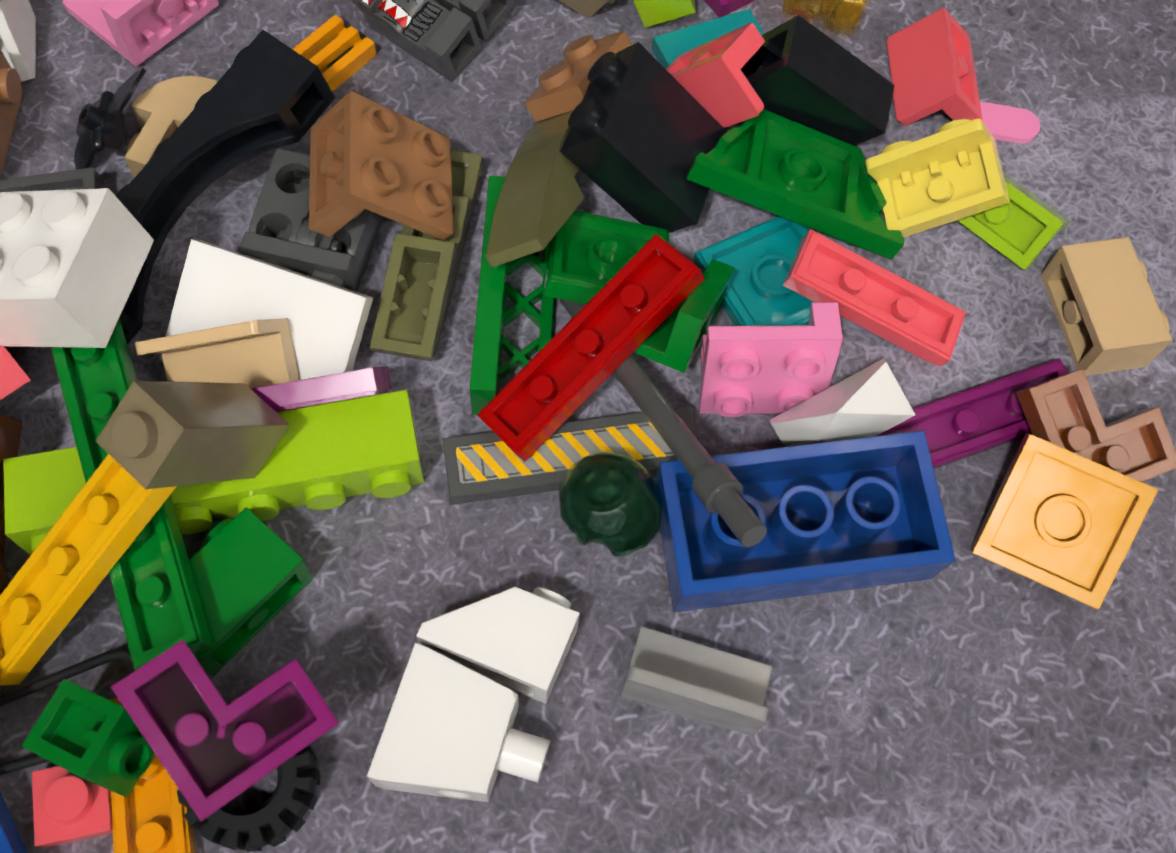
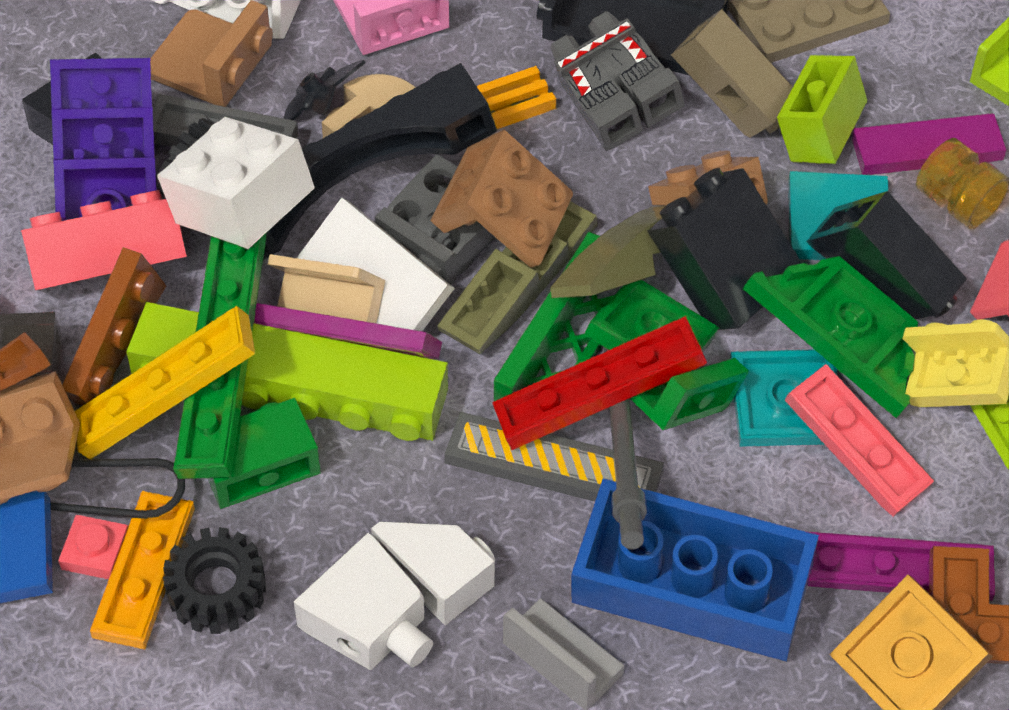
camera: 30 degrees right, 10 degrees down
(91, 739) = (129, 505): green bracket -> none
(191, 433) = (283, 324): dark tan brick -> none
(217, 746) = (216, 531): magenta brick -> none
(611, 502) = (558, 500): clear green hair -> none
(715, 75) = (801, 219): coral panel -> none
(769, 365) = (732, 451): bright pink piece -> none
(848, 410) = (791, 504): white slope -> none

